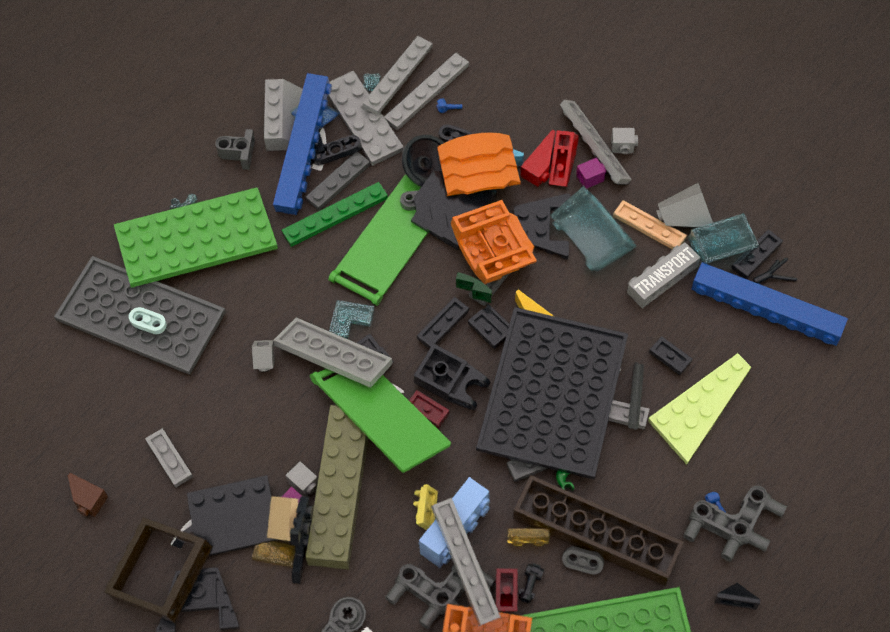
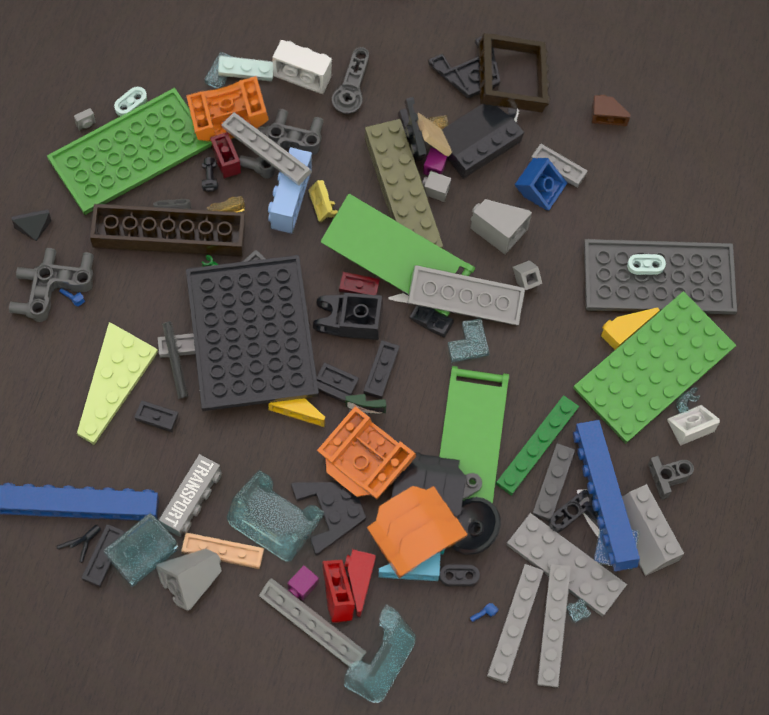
camera: 150 degrees right, 5 degrees up
(192, 178) = (693, 424): none -> white slope
(198, 278) = (623, 327): none -> yellow slope
(198, 445) = (541, 183): none -> blue slope
(261, 409) = (500, 223): none -> light grey slope
(568, 83) = (376, 679): none -> clear light blue windscreen
(623, 140) = (282, 636): light grey brick -> none

